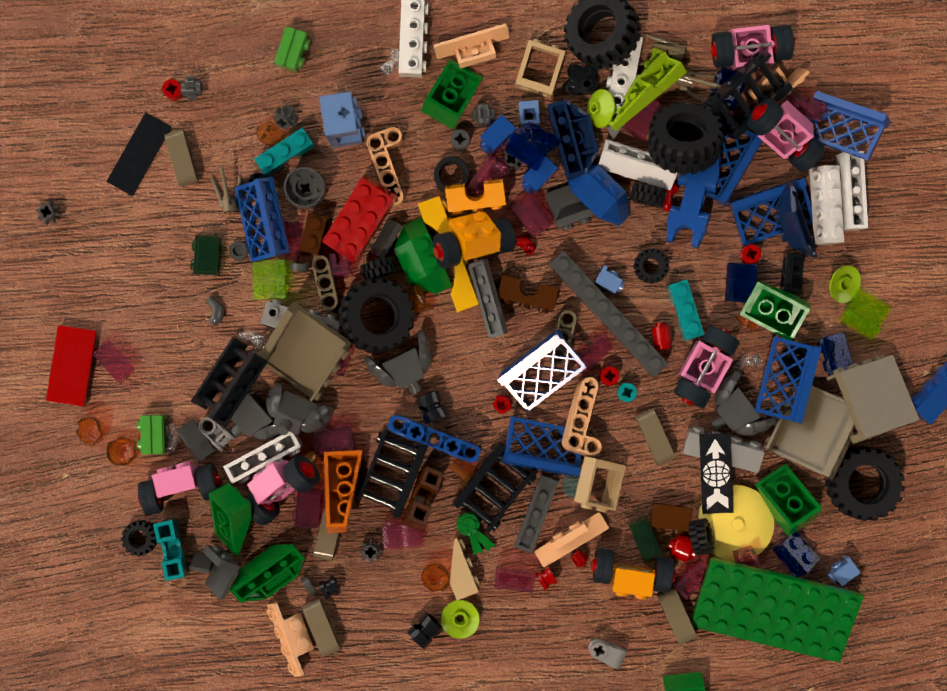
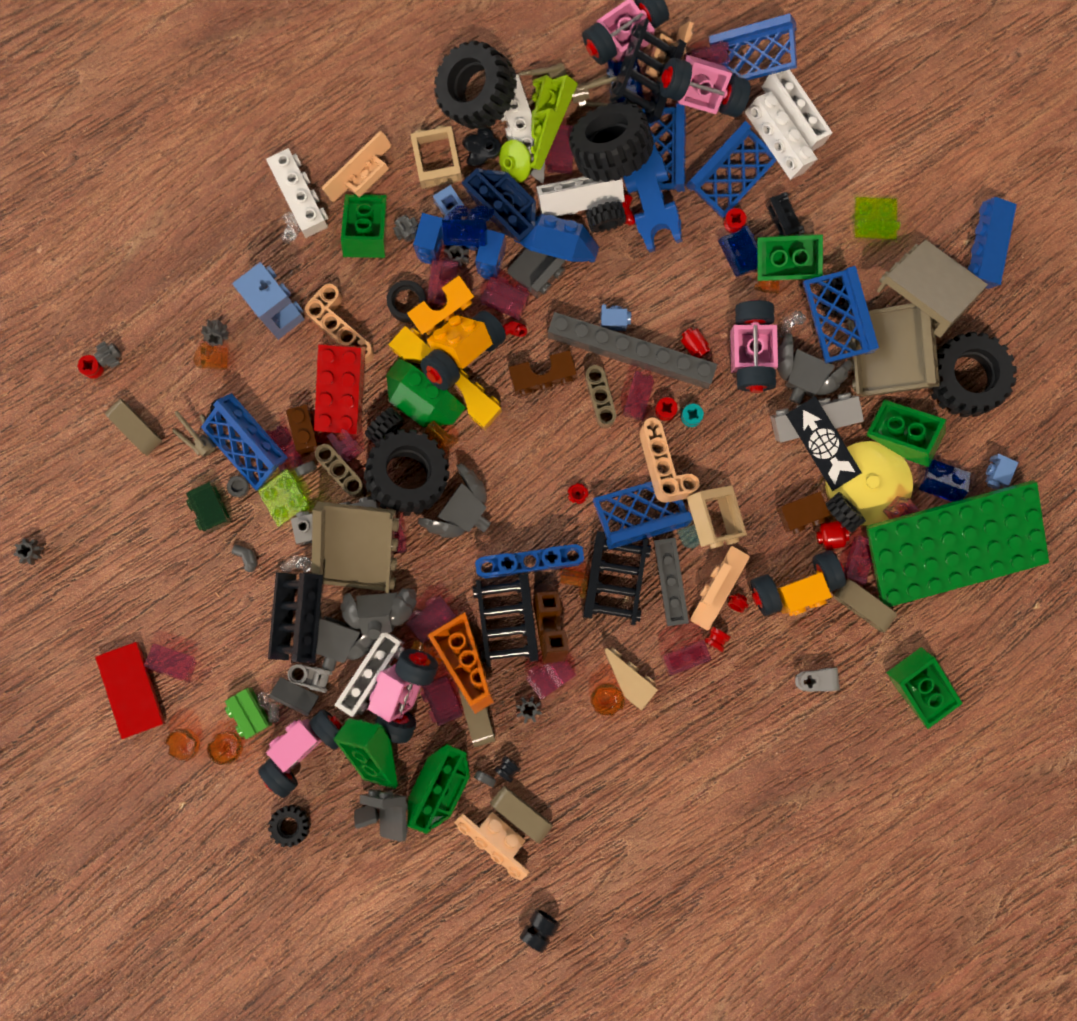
camera: 25 degrees left, 5 degrees down
(138, 154) = (90, 447): black sticker -> none
(174, 559) = (320, 809): teal arch -> none
(289, 148) = (225, 375): teal arch -> none
(292, 49) = (187, 266): bright green brick -> none
(294, 190) = (263, 378): dark grey wheel -> none
(385, 238) = (375, 395): dark grey tile -> none
(425, 630) = (626, 758): black wheel -> none
(432, 407) = (510, 533): black wheel -> none
(456, 628) = (666, 728): lime dish -> none
(459, 143) = (397, 269): dark grey wheel -> none
(468, 525) = (611, 630): green piece -> none
(488, 298) = (507, 397): dark grey plate -> none
(533, 356) = (582, 429): fence -> none
(644, 538) = (790, 547): clear green brick -> none
(651, 254) = (647, 270): black tyre -> none
(655, 437) = (744, 443): dark tan beam -> none
(687, 314) = (713, 313): teal arch -> none
(793, 223) = (758, 166): dark blue wedge -> none
(835, 352) = (869, 267): clear blue bracket -> none
(844, 283) = (840, 199): lime dish -> none

